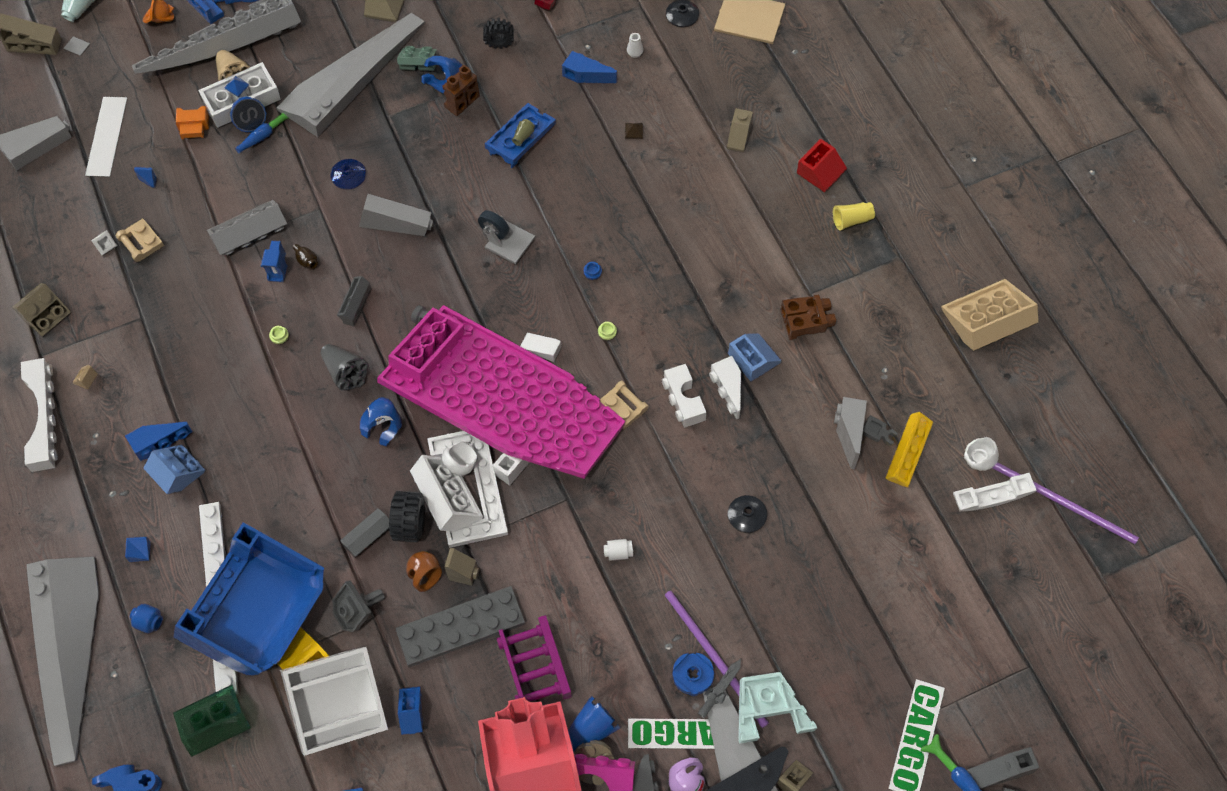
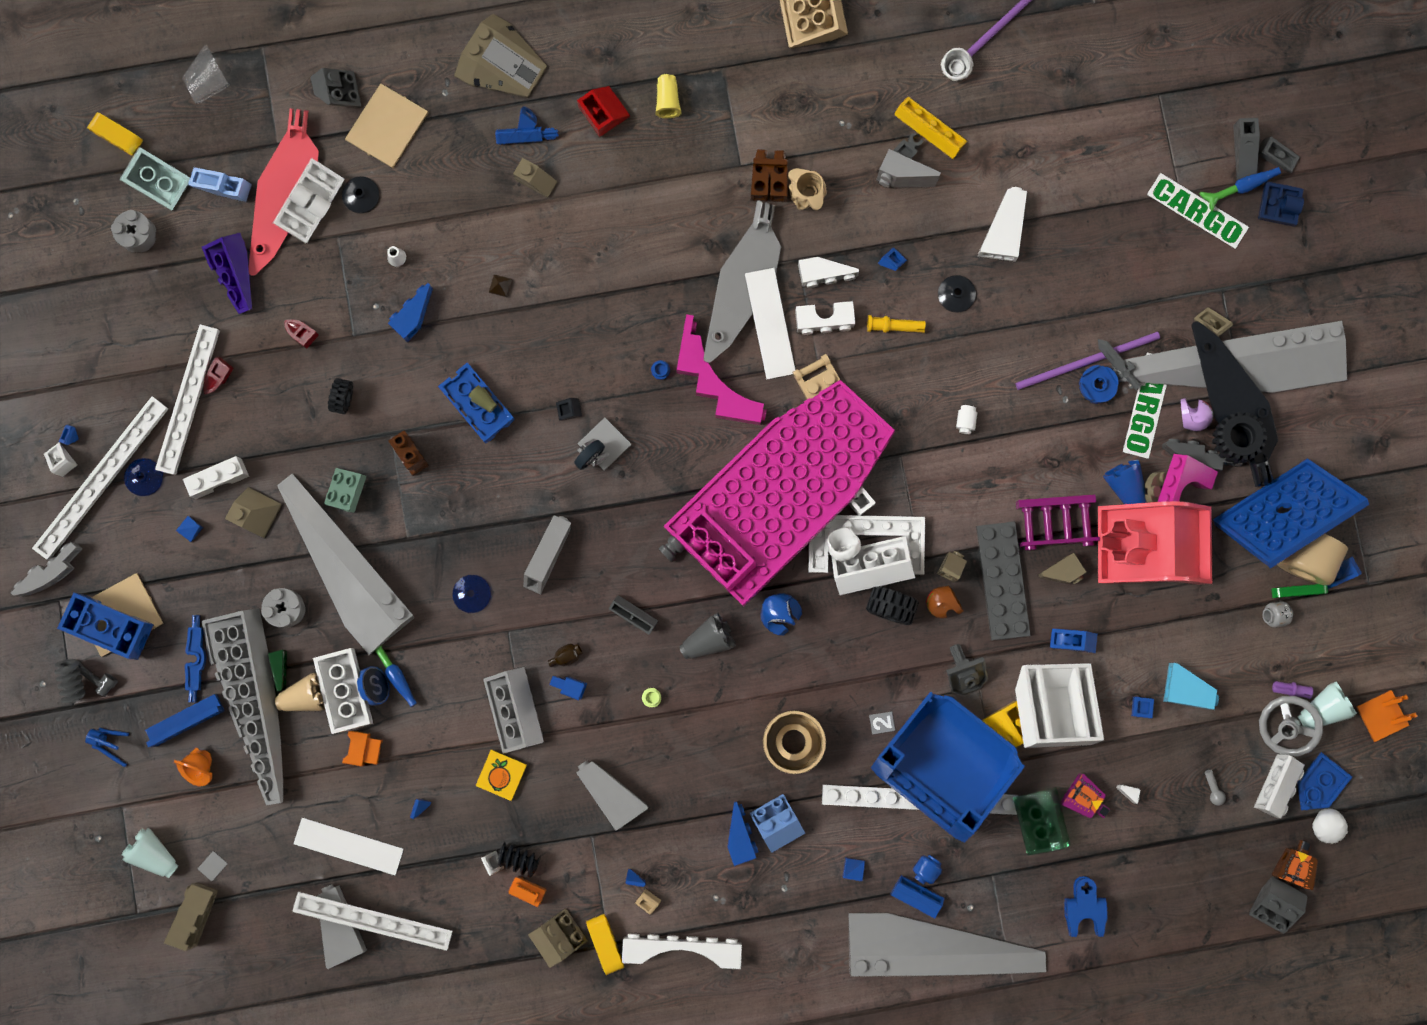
camera: 75 degrees left, 20 degrees up
(37, 160) = (372, 921): none -> white plate
(41, 346) = (605, 944): none -> yellow beam
(80, 273) = (527, 891): none -> orange piece
(103, 359) = (634, 879): none -> blue slope
(108, 260) = (518, 860): none -> black piece
(116, 616) = (917, 896): none -> blue piece
(145, 237) = (494, 819): tan plate -> none
(180, 320) = (611, 796): none -> light grey slope
(186, 232) = (501, 775): none -> yellow tile
(236, 86) = (339, 690): blue slope -> none
(243, 760) = (1085, 798): none -> torso
(246, 443) = (814, 742): none -> tan piece
(253, 48) = (278, 664): none -> dark green slope
(293, 542) = (882, 722): none -> light grey sticker
(304, 38) = (272, 608): none -> light grey brick
(366, 533) = (892, 648): dark grey piece -> none
(449, 66) = (373, 456): blue piece -> none
(484, 684) = (1065, 570): none -> dark tan slope
(536, 208) = (568, 409): none -> black slope
(542, 346) = (732, 441): white slope -> none
(607, 330) = (732, 372): yellowish green plate -> none
(608, 294) = (730, 404): none -> dark pink arch
(664, 350) = (770, 323): none -> white sticker
(694, 452) = (886, 324): none -> yellow pin
(696, 316) = (732, 305): none -> light grey wing
(753, 355) = (800, 239): medium blue slope -> none
(762, 445) = (892, 260): none -> blue slope
(766, 697) = (1137, 327): light aqua wing -> none
(781, 114) = (526, 130): none -> blue piece
(804, 346) = (807, 188): none -> tan piece
(830, 541) = (1005, 231): none -> white slope
(840, 81) = (500, 59): none -> dark tan wedge
(995, 494) = (995, 66): white slope -> none

